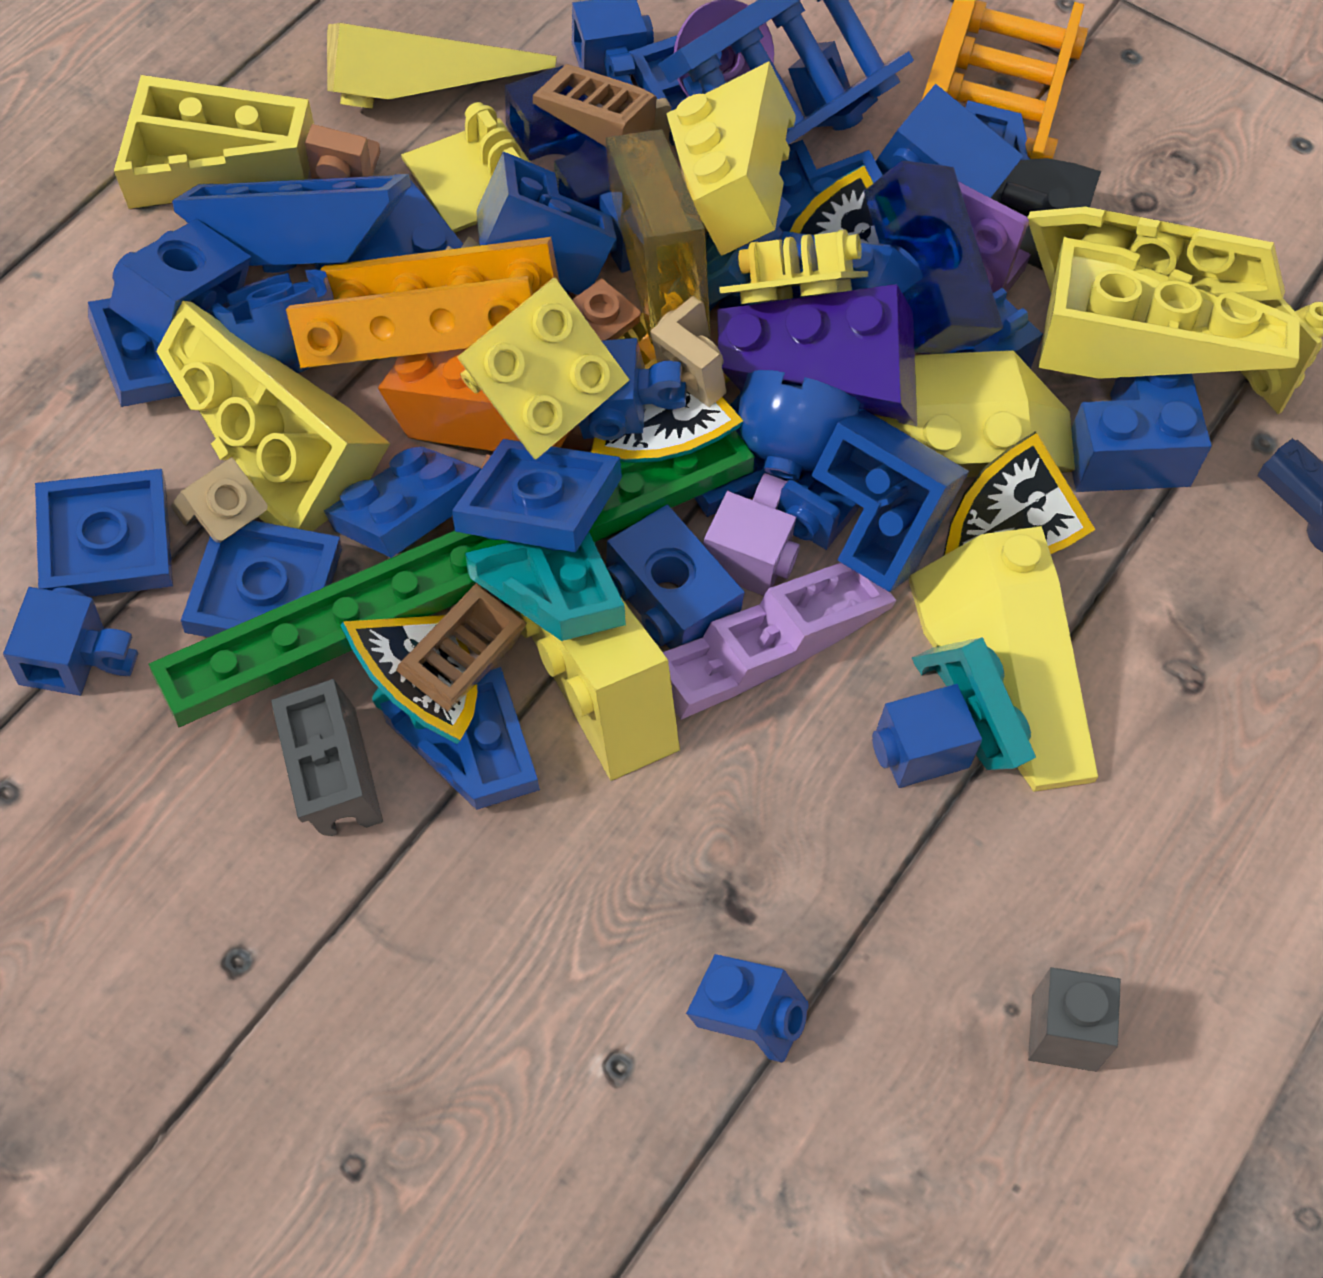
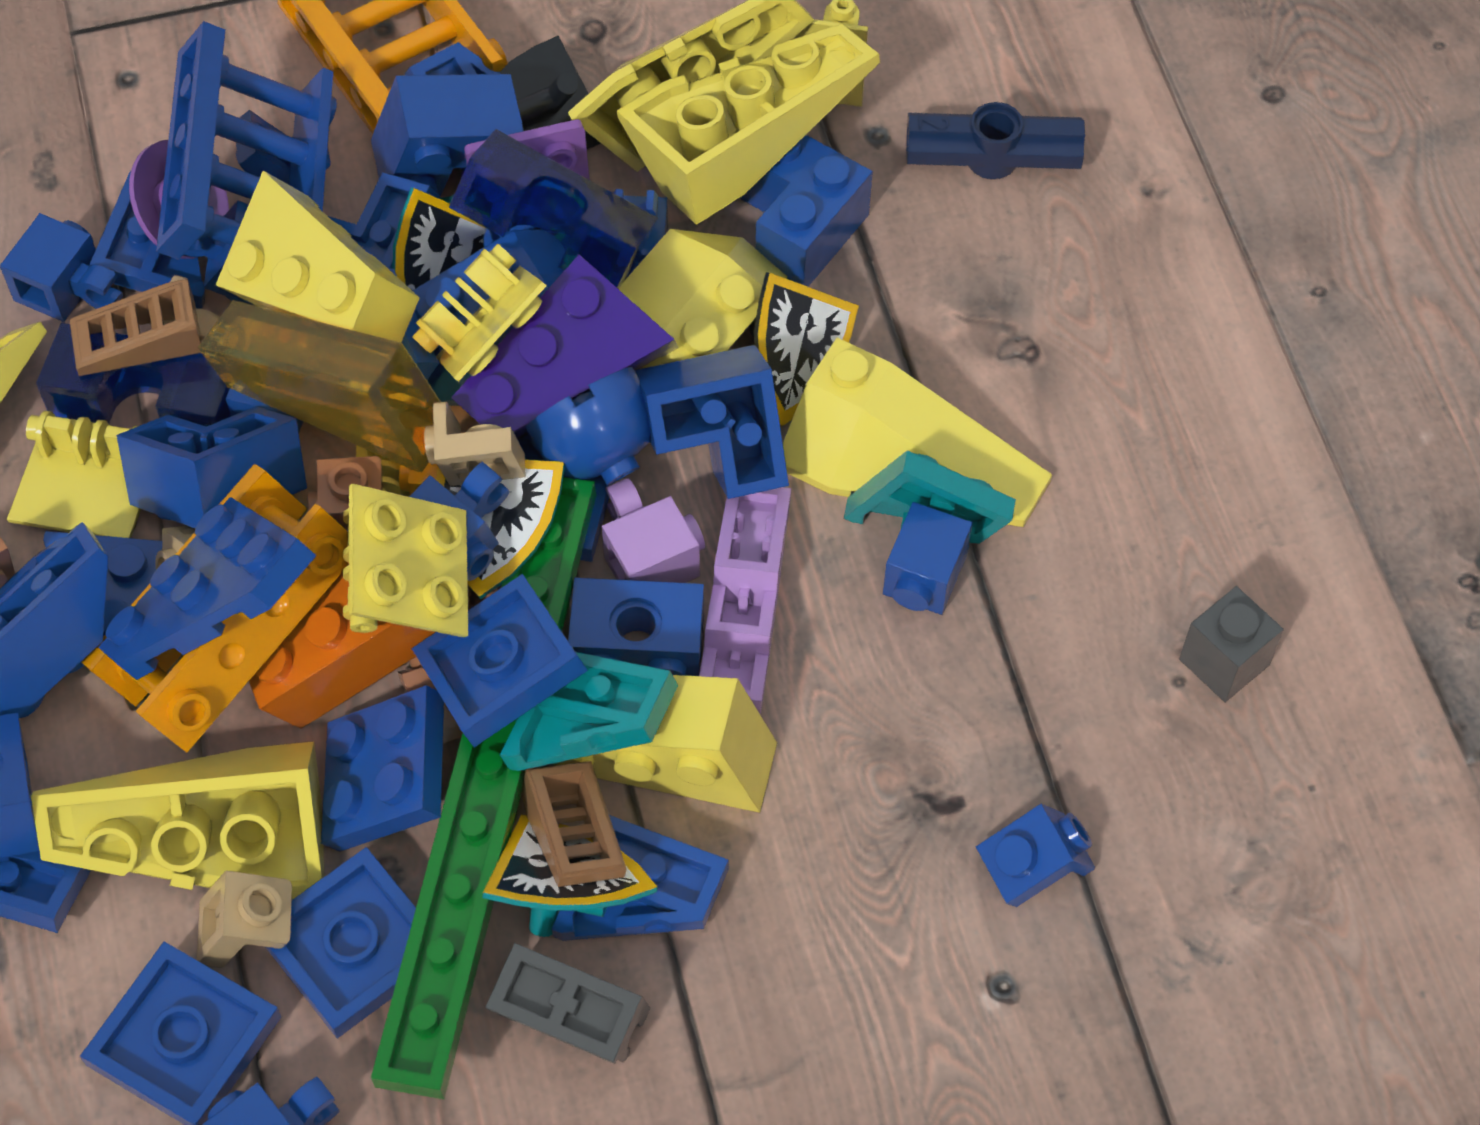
camera: 45 degrees left, 0 degrees up
(260, 315) = (99, 731): blue cylinder -> none
(416, 269) = (227, 569): none -> blue plate
(817, 508) = (666, 476): blue bracket -> none

